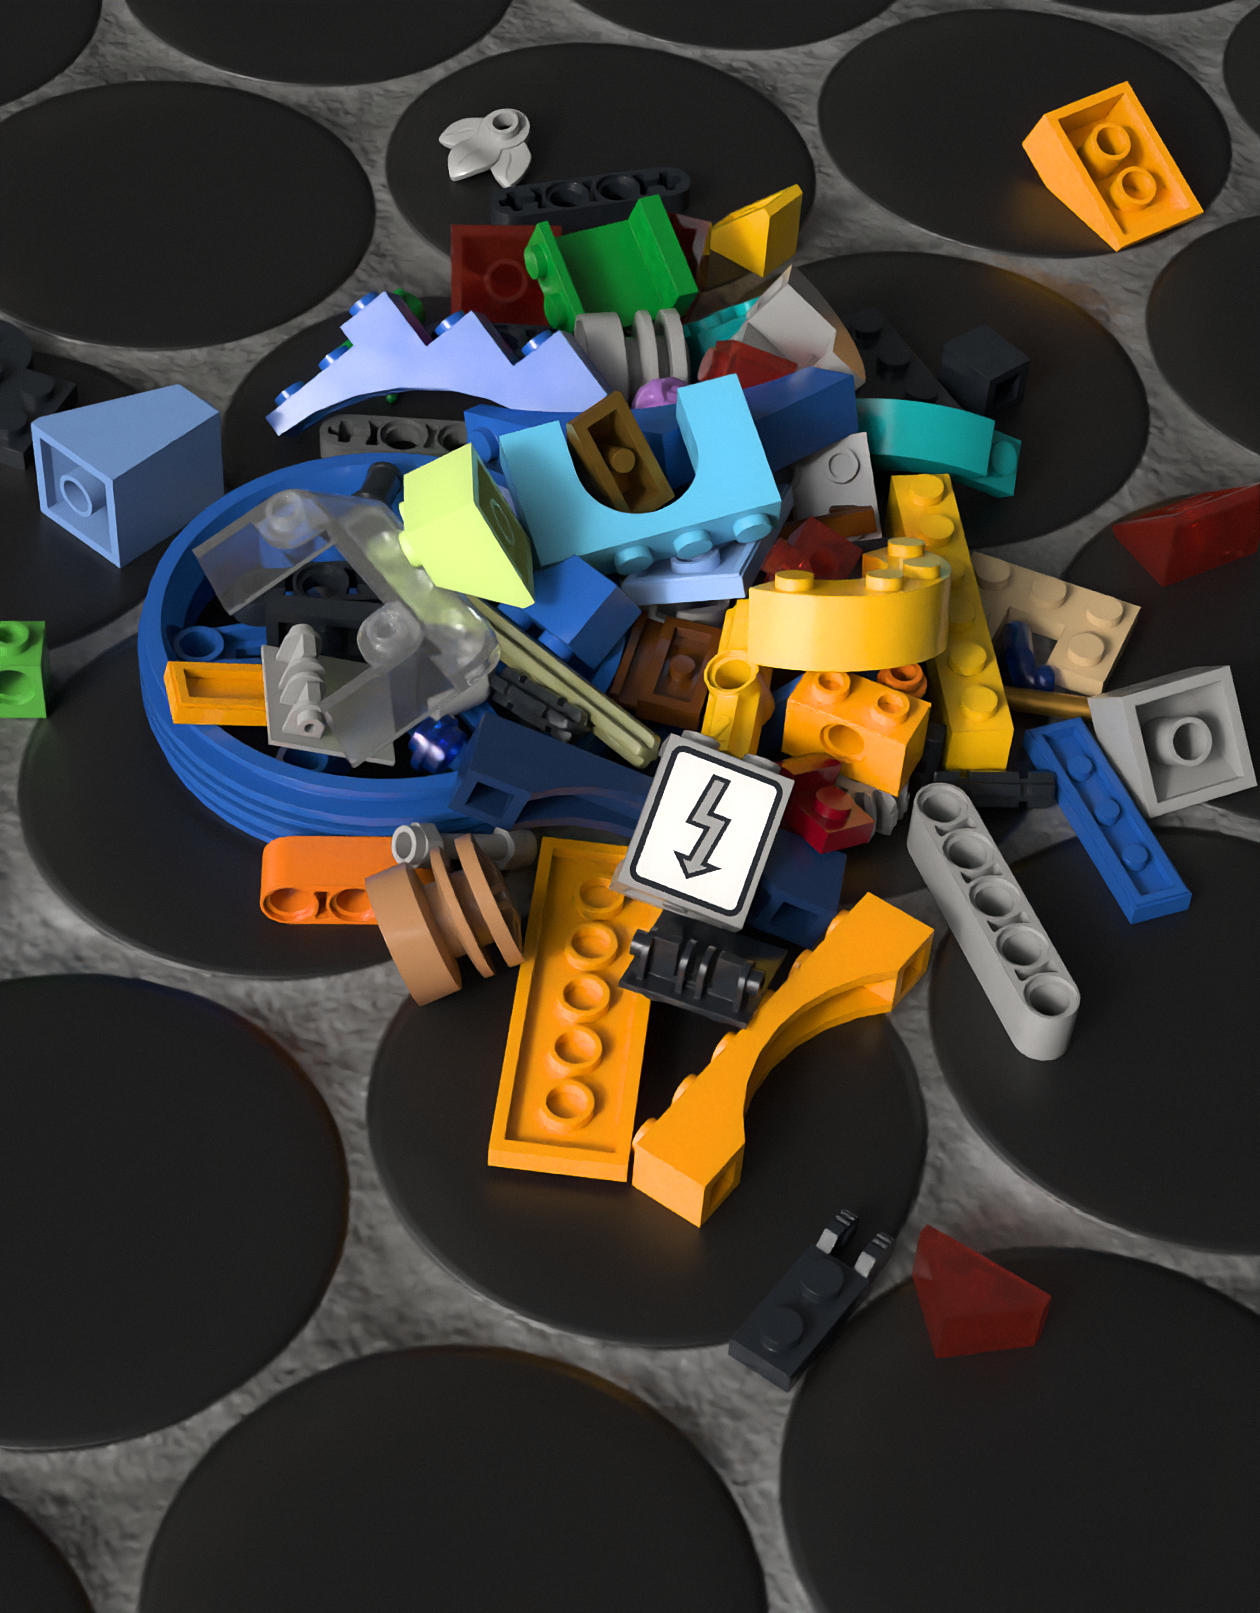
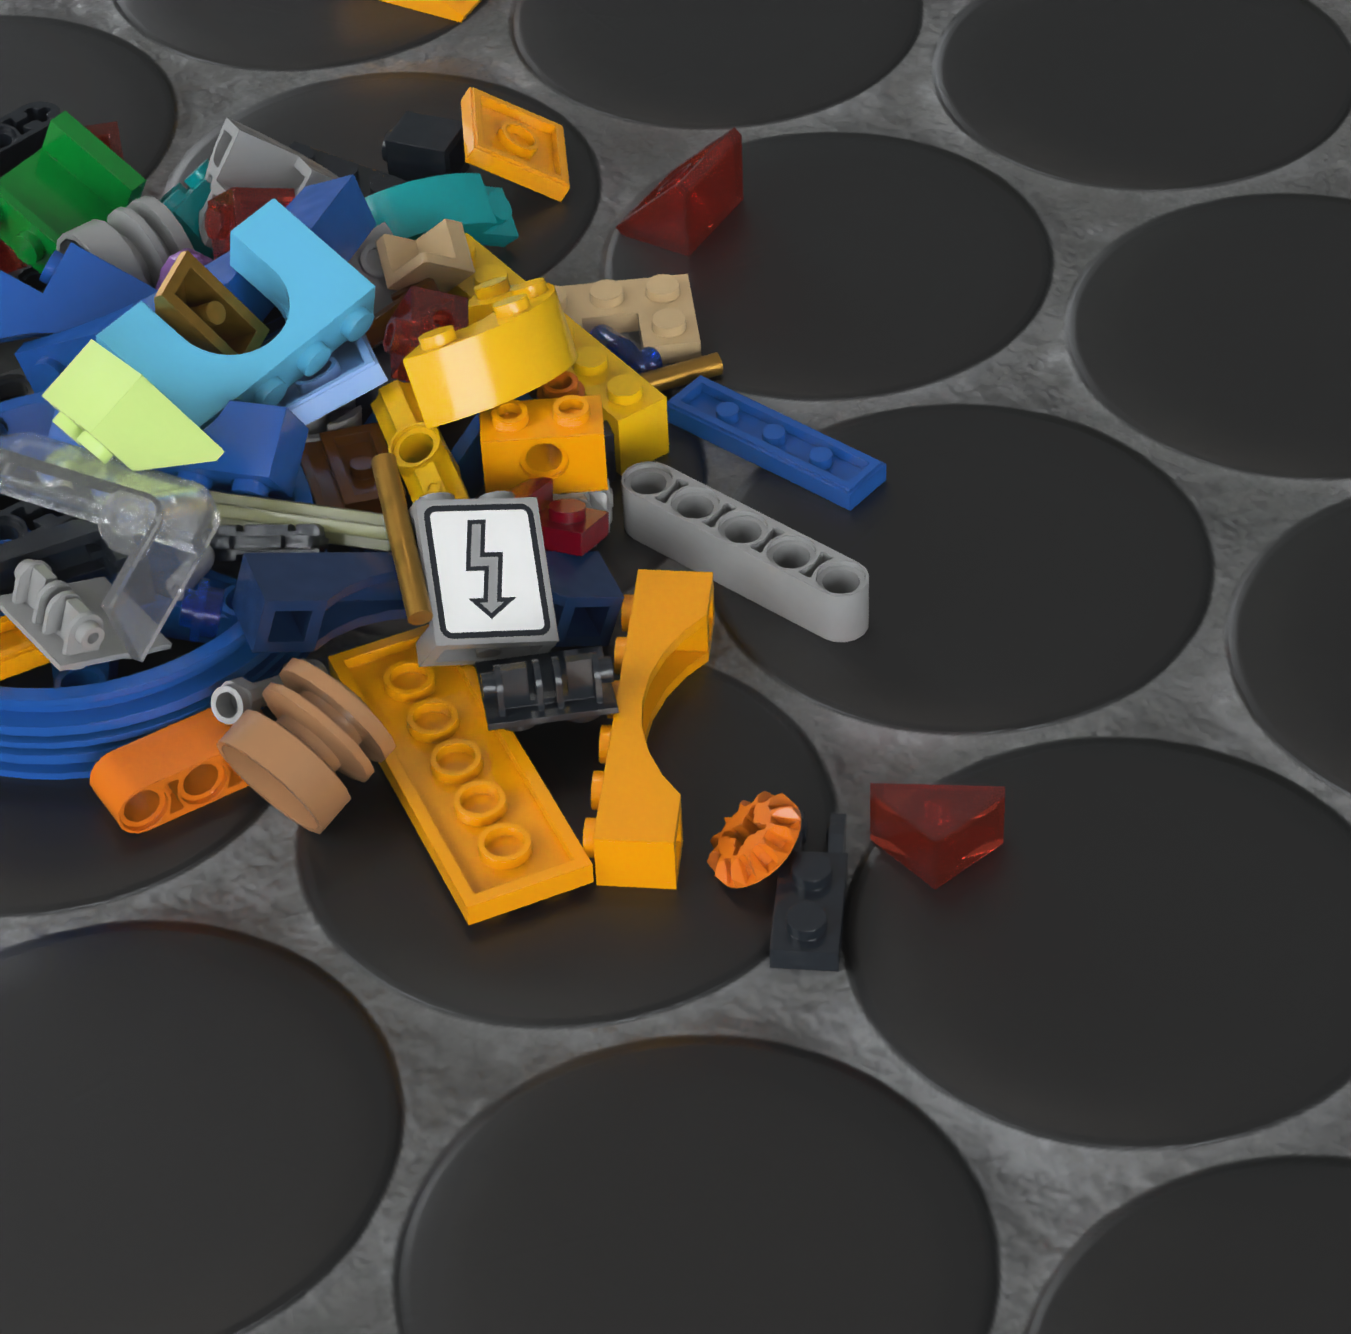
camera: 25 degrees left, 5 degrees down
(644, 763) = (401, 539): none -> pearl gold bar
(761, 233) = (154, 119): yellow slope -> none
(774, 1234) = (755, 840): none -> orange gear
(892, 488) = (437, 255): none -> tan panel
(1002, 788) = (680, 453): black axle -> none
(1066, 401) = (514, 144): none -> light orange plate
(1175, 739) = (790, 353): light grey slope -> none

